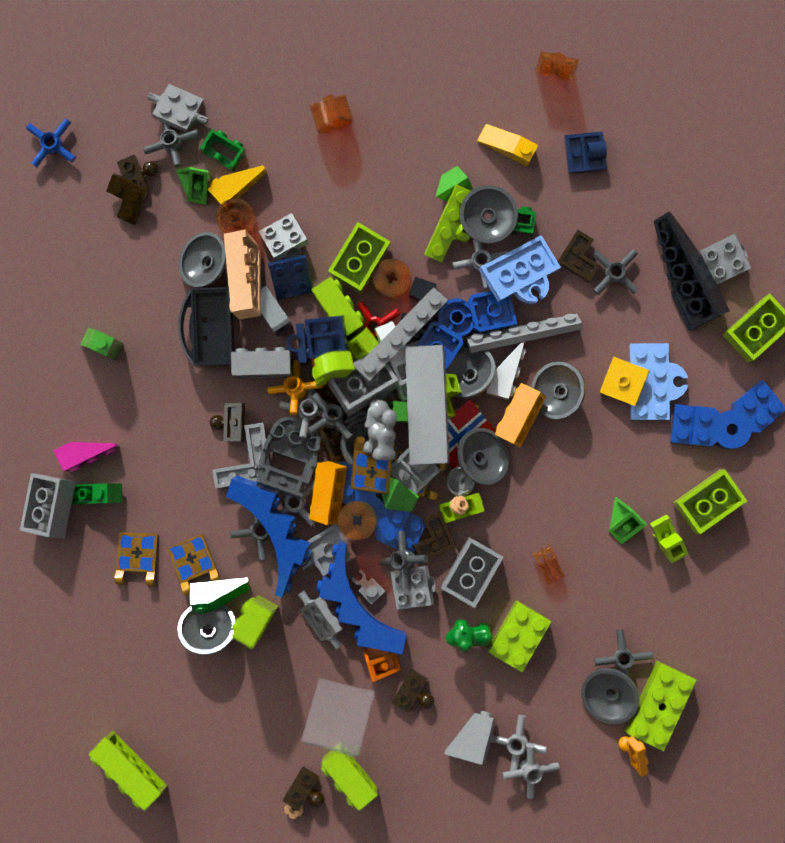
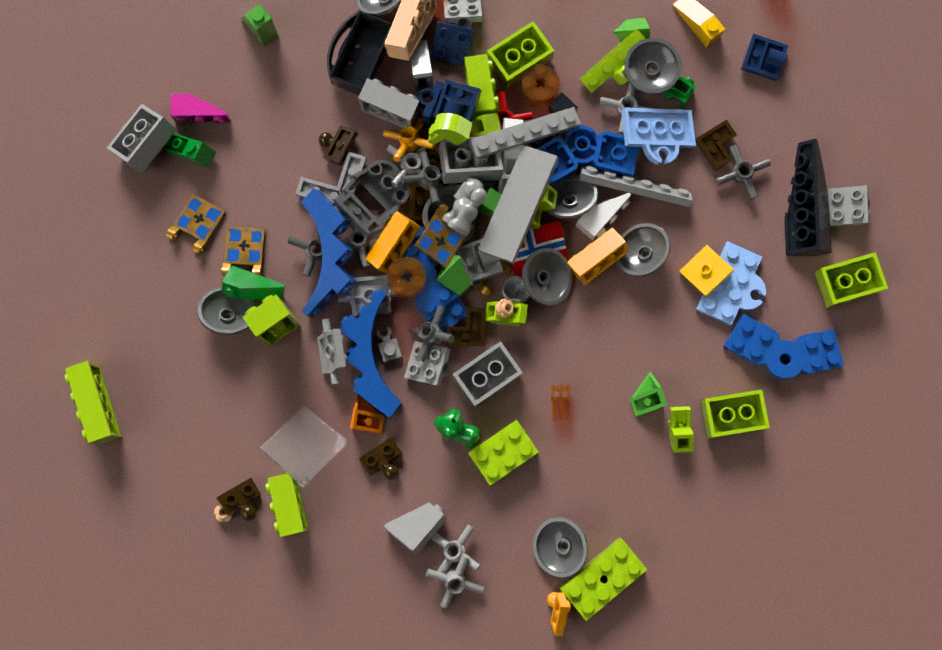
camera: 25 degrees right, 5 degrees down
(622, 650) = (591, 510): dark grey bar -> none

